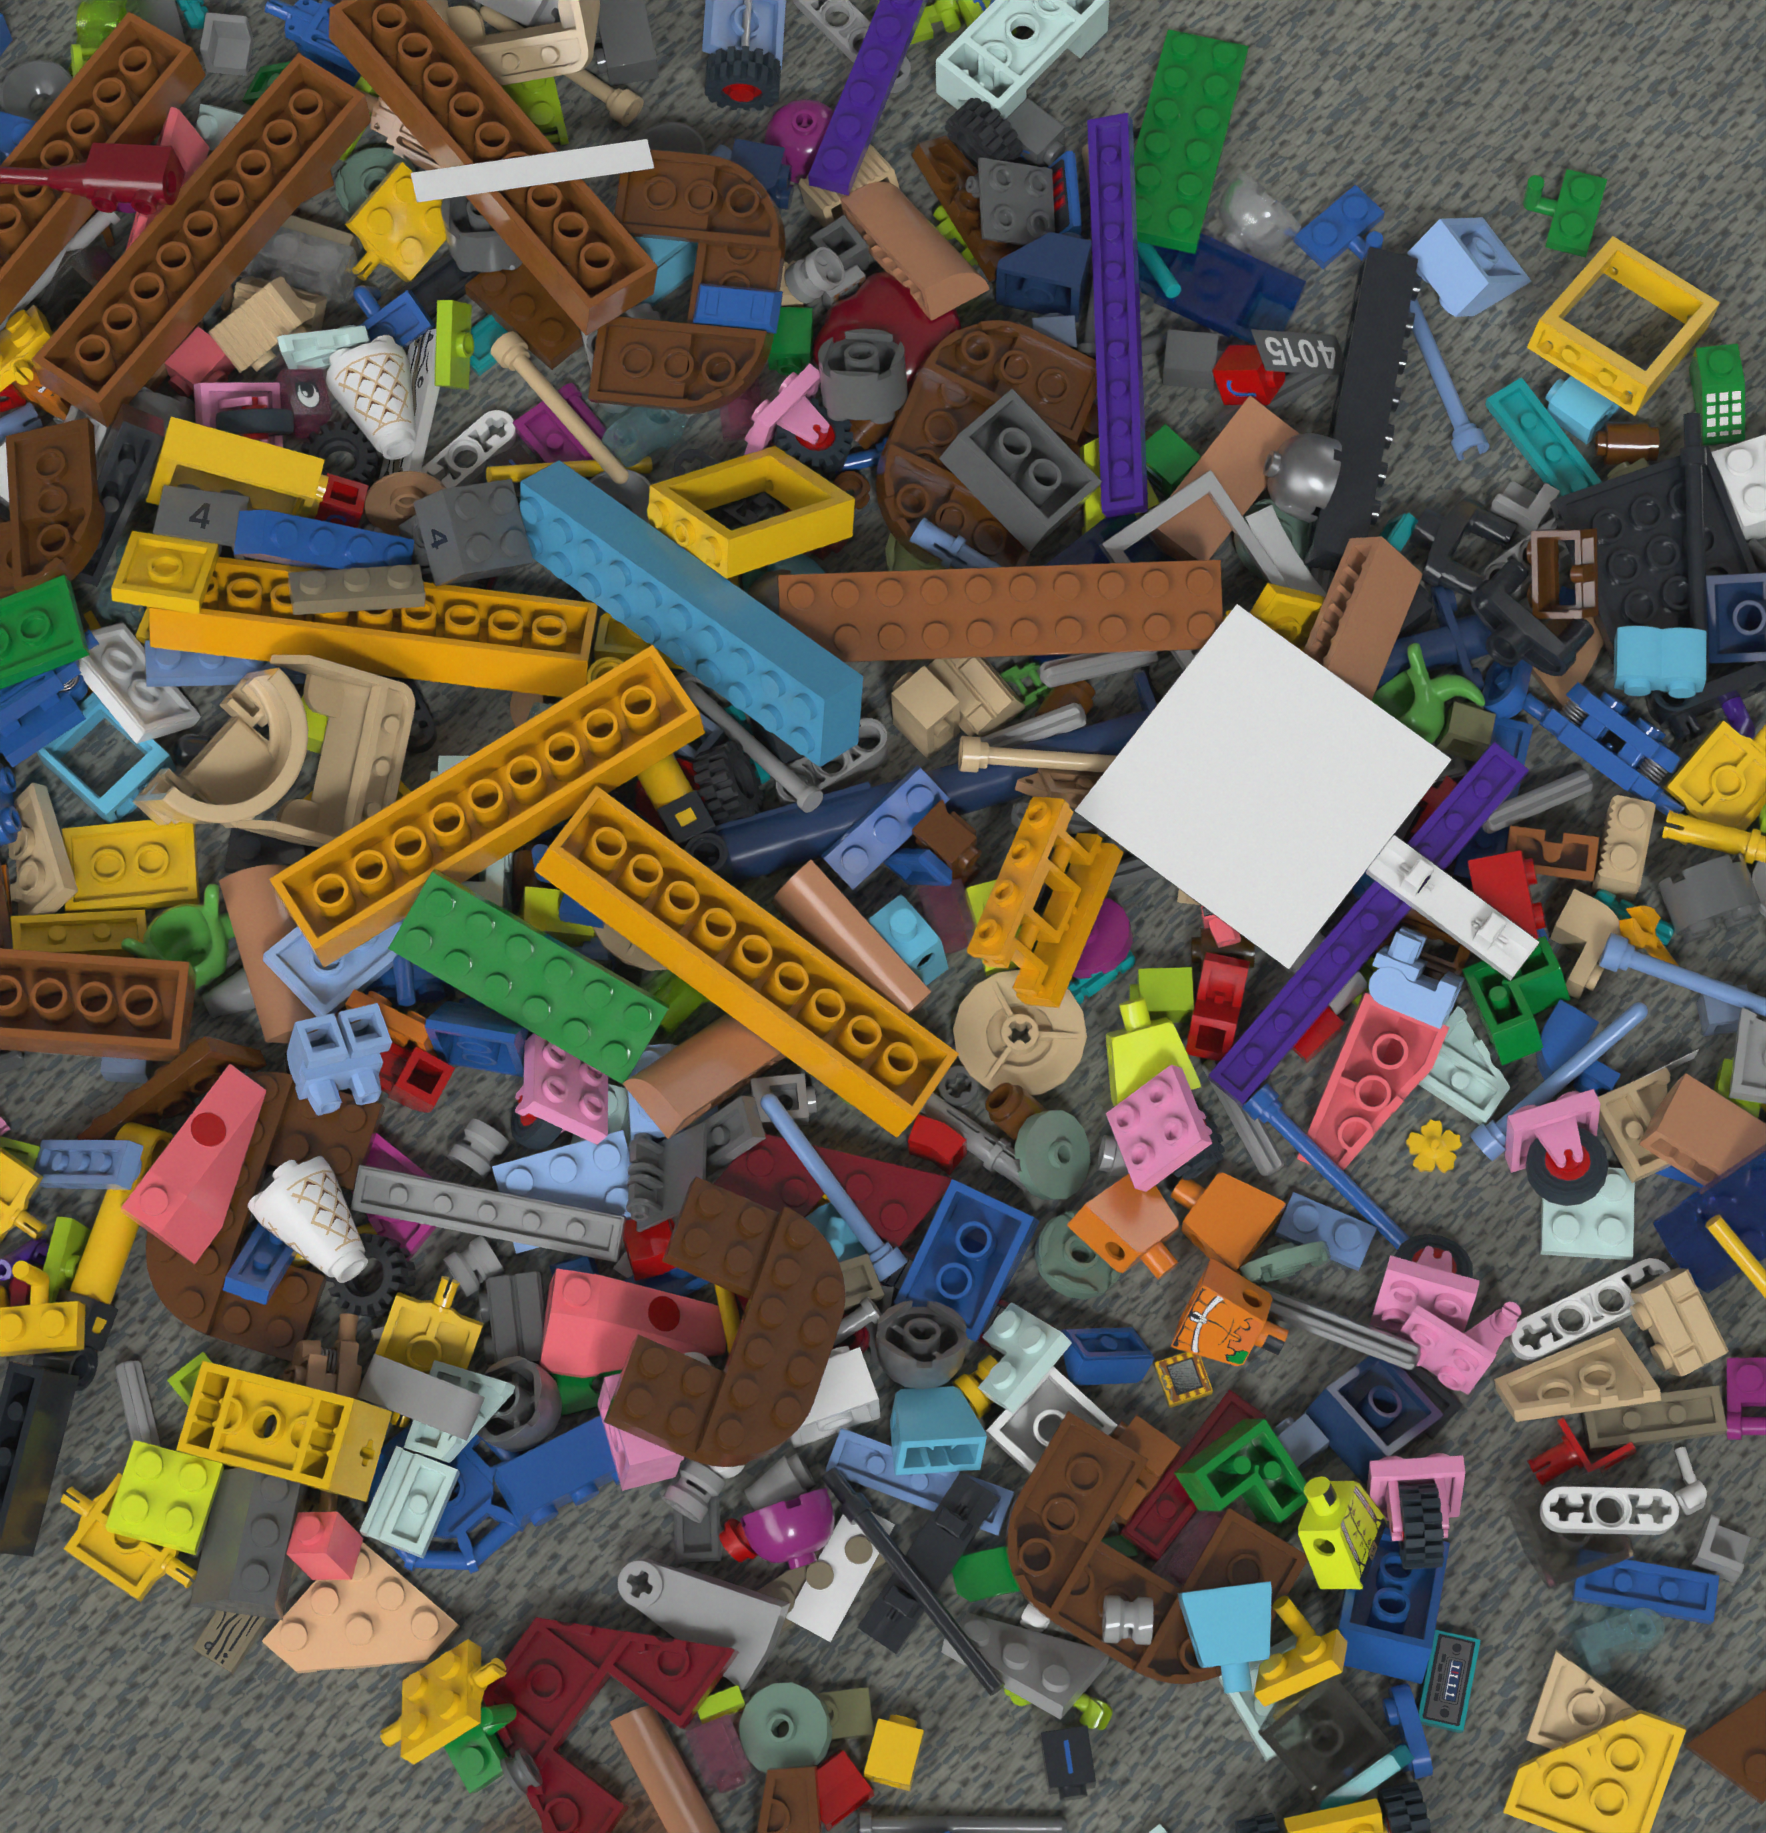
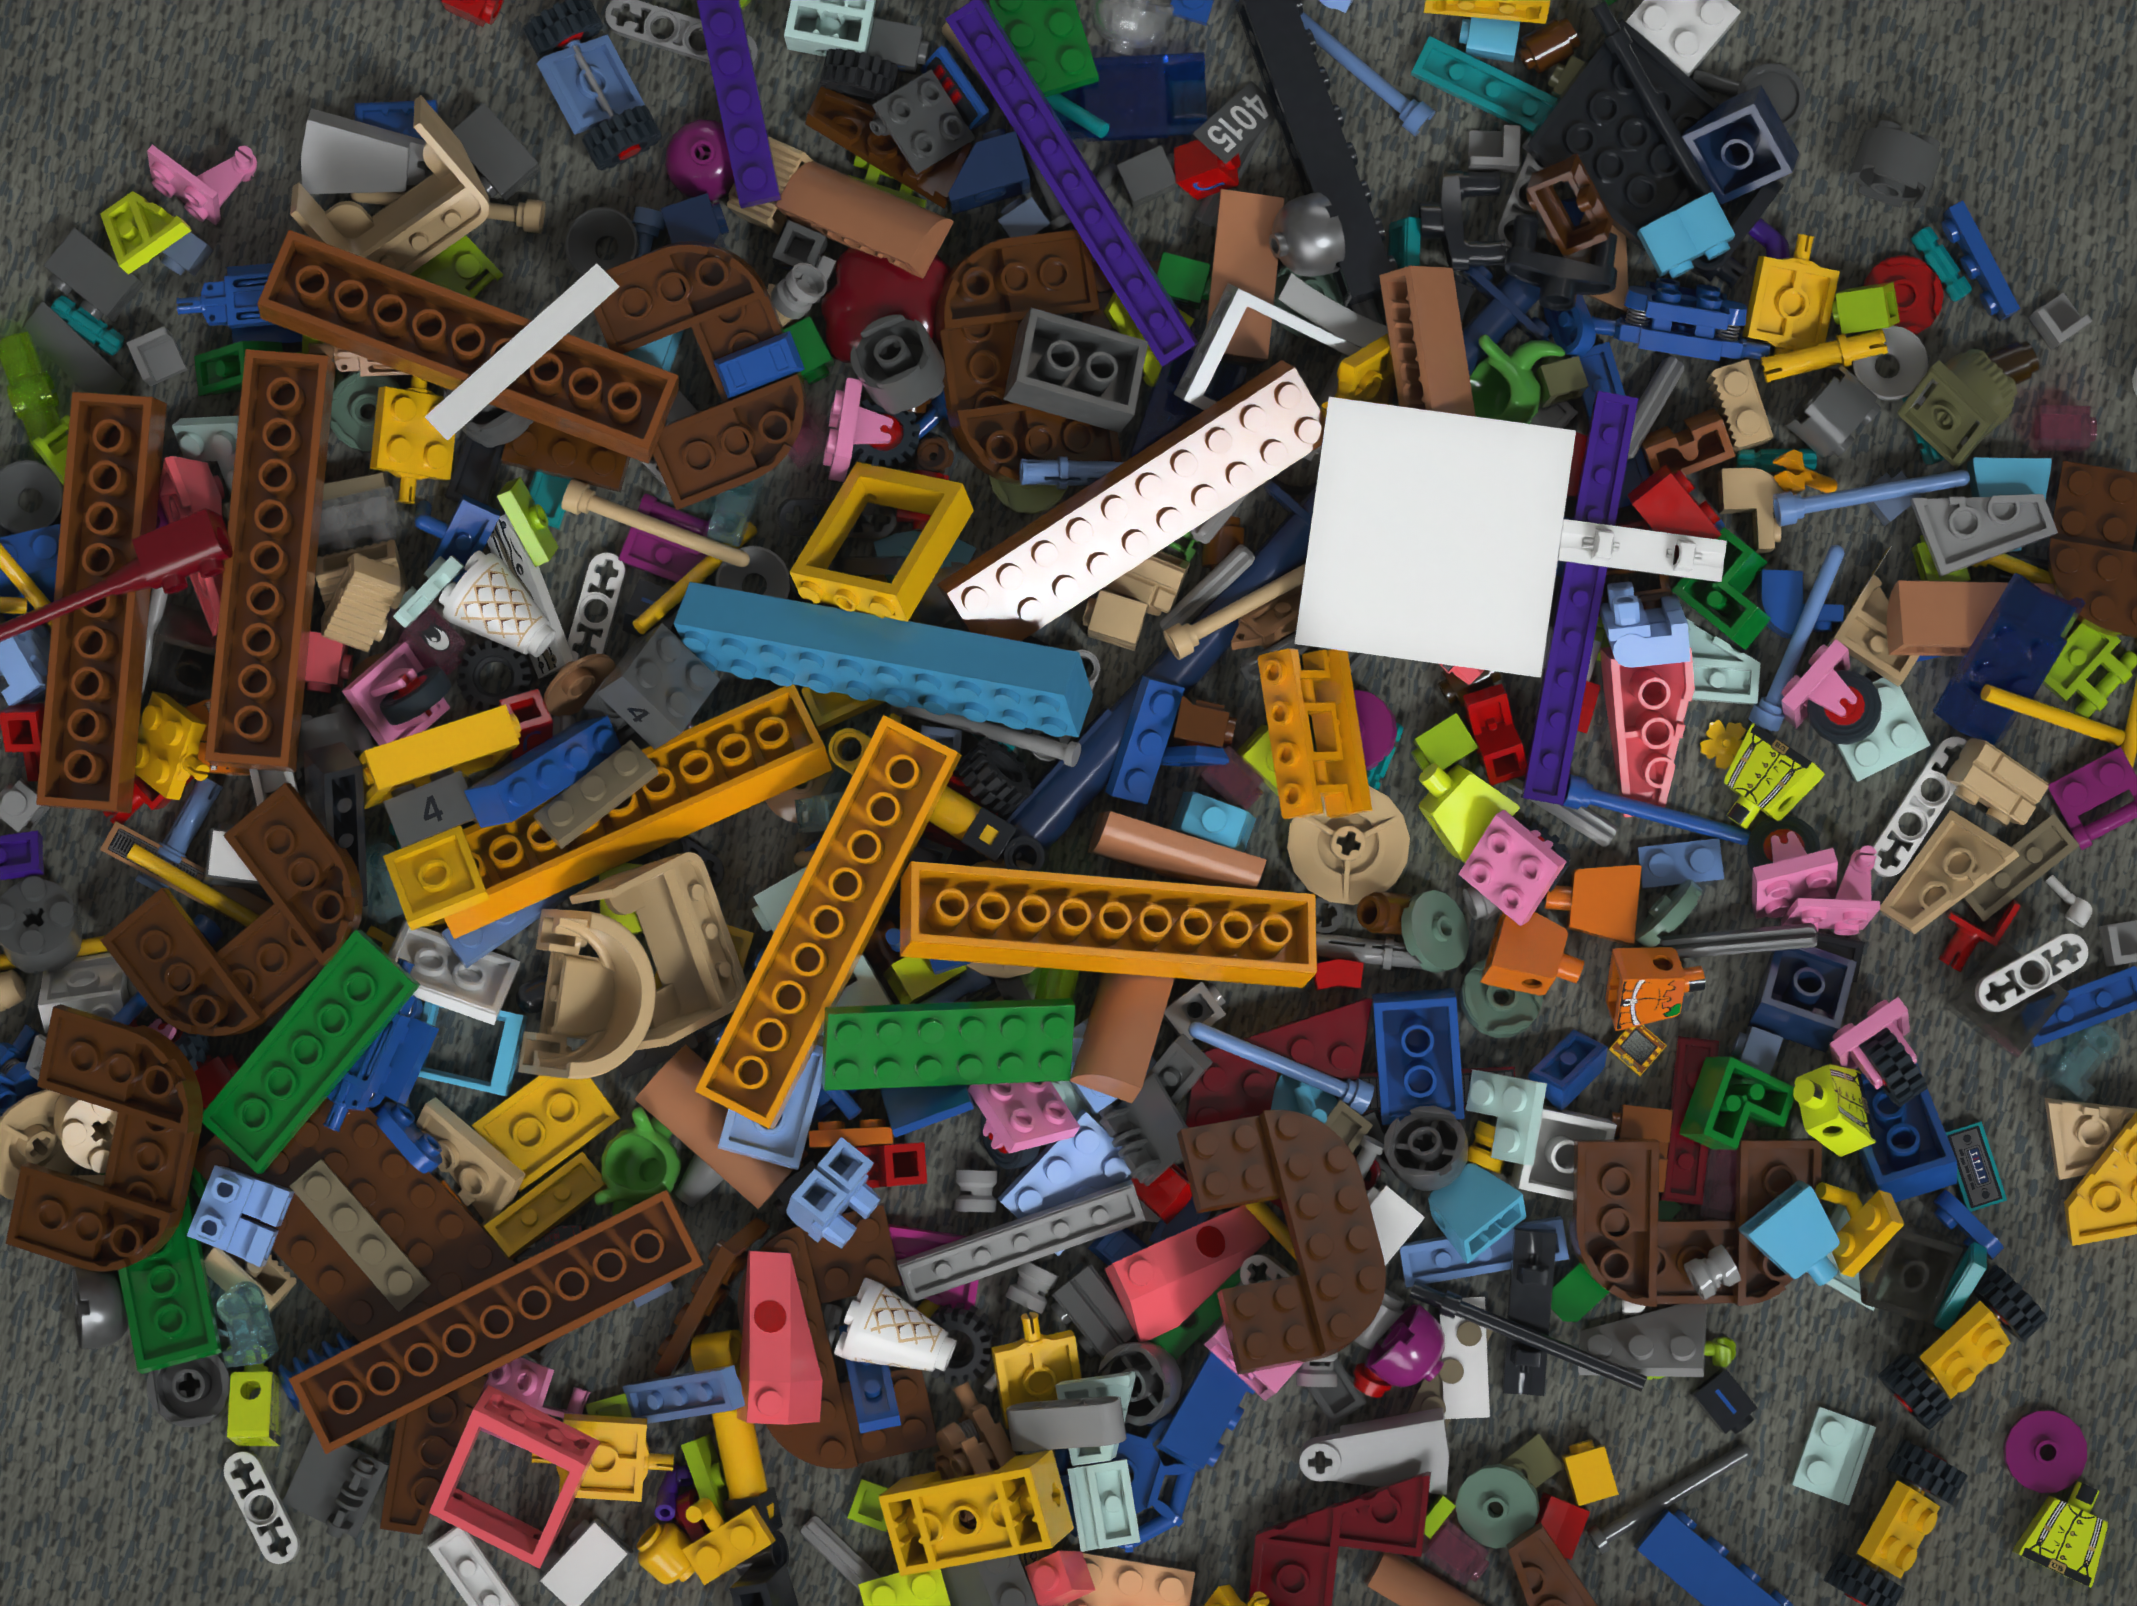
camera: 30 degrees left, 15 degrees up
(1456, 1193) = (1768, 777): none -> neon yellow torso

